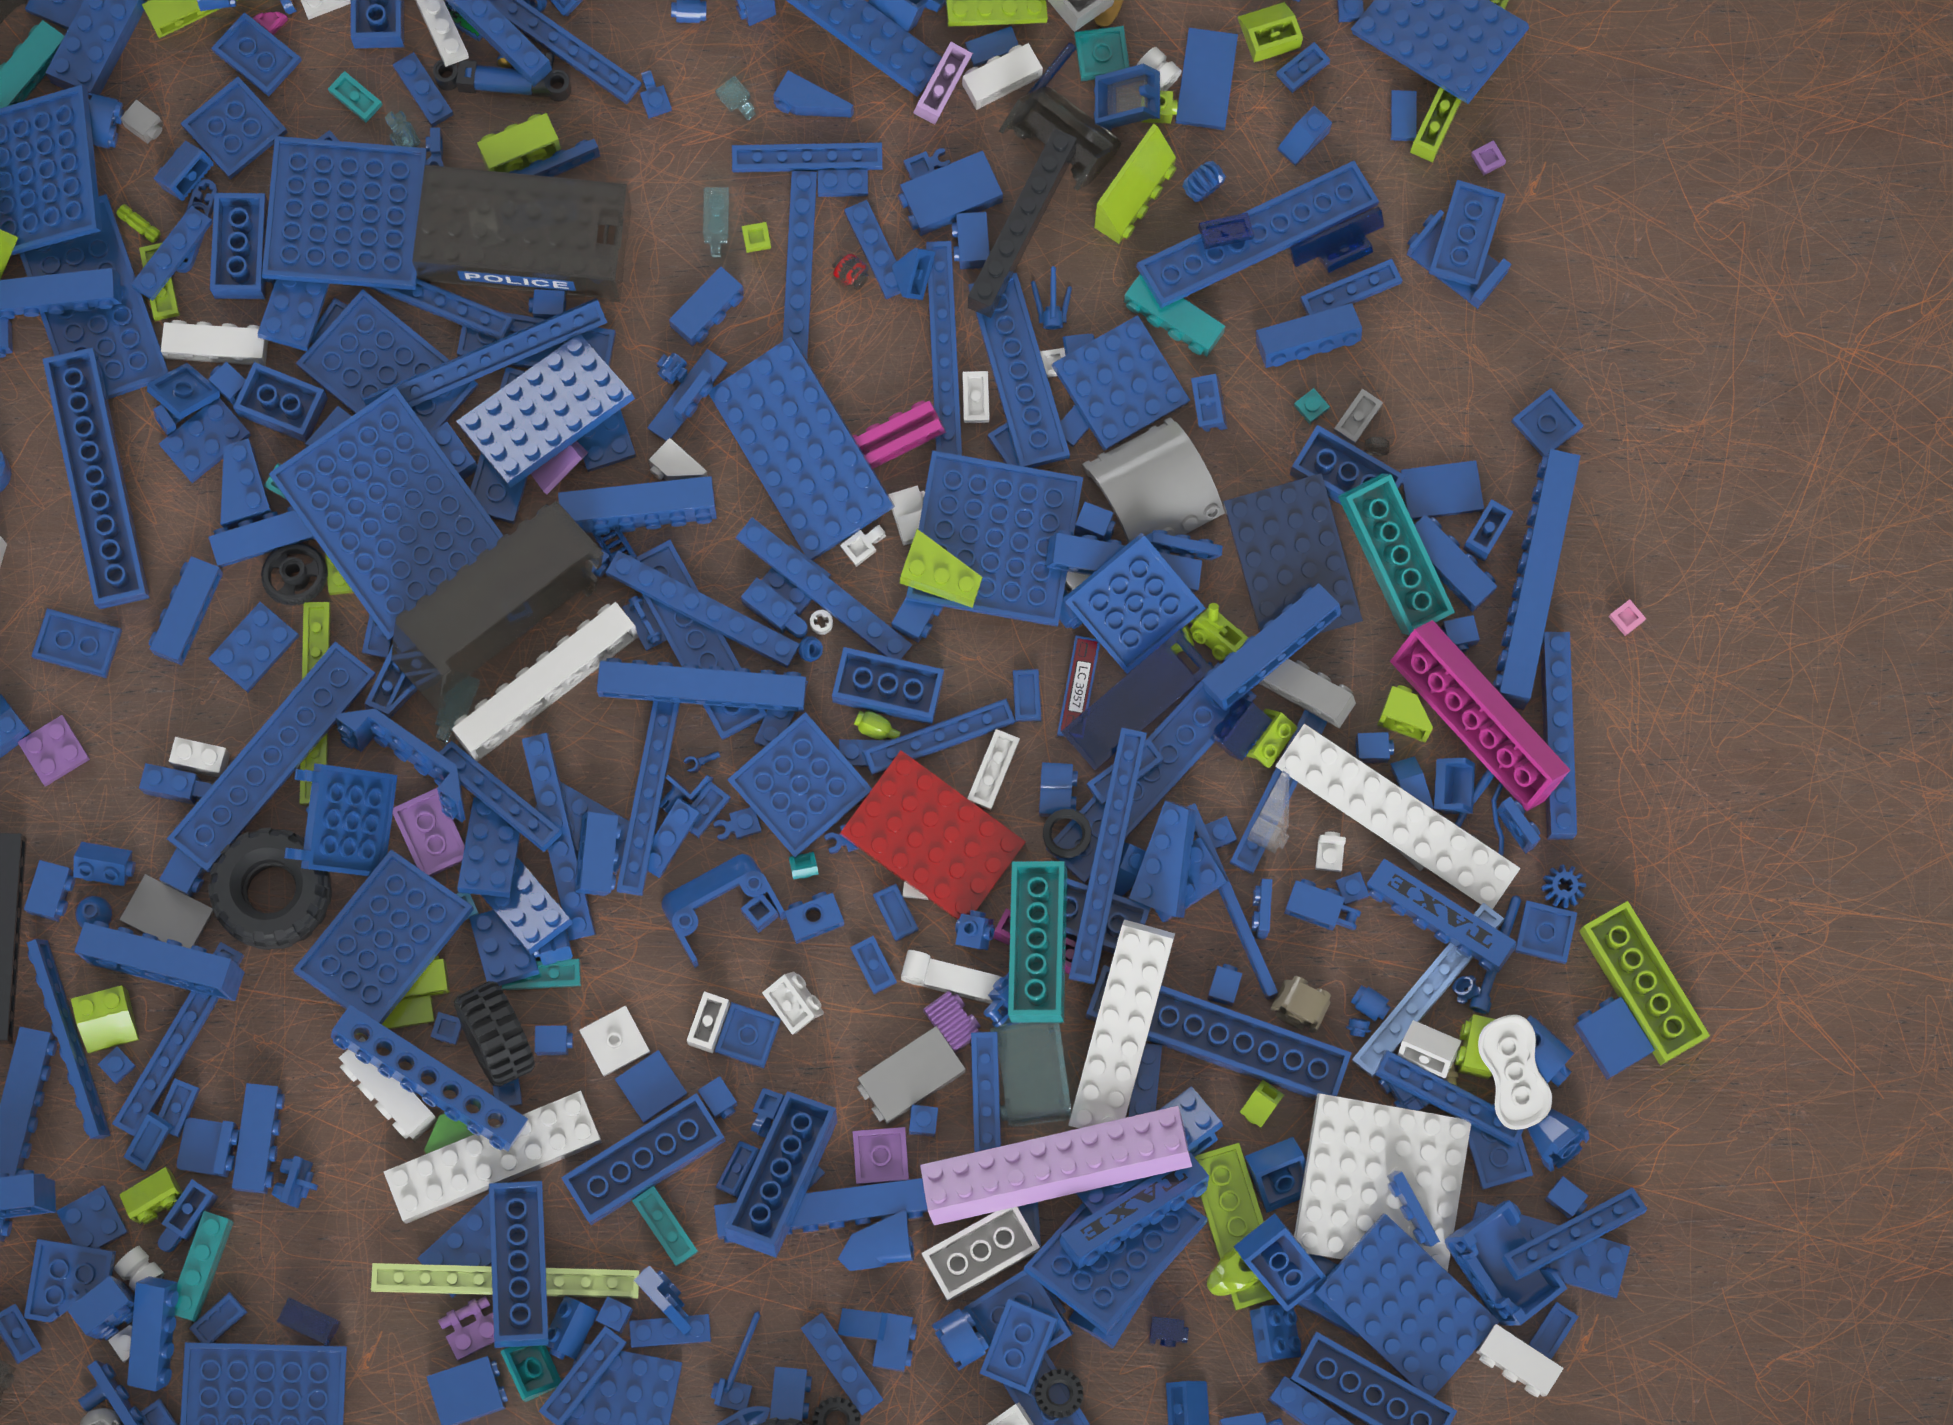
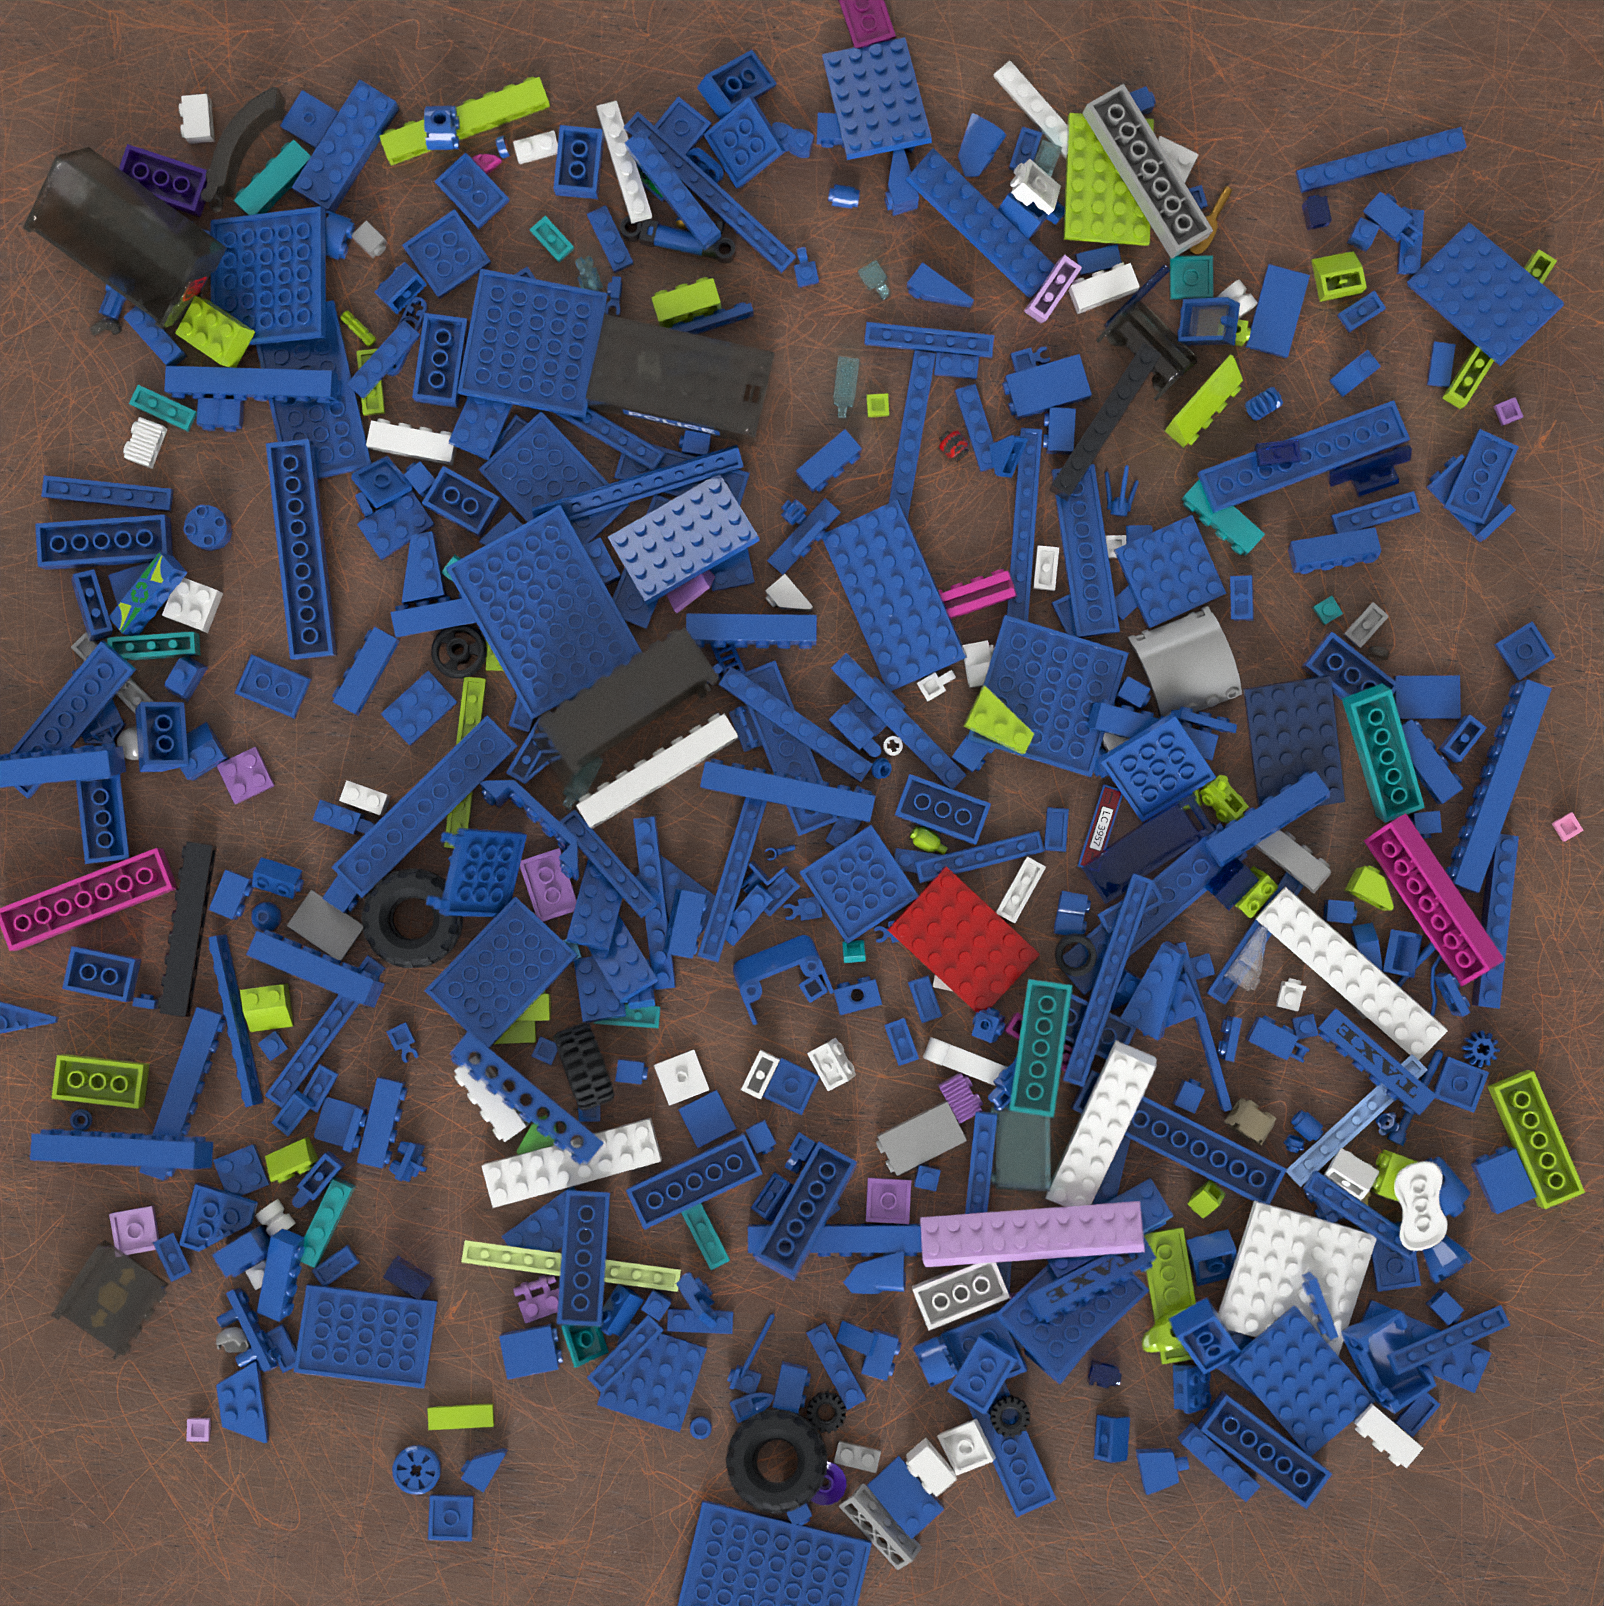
camera: 10 degrees right, 10 degrees up
(272, 1036) = (402, 1038): none -> blue plate

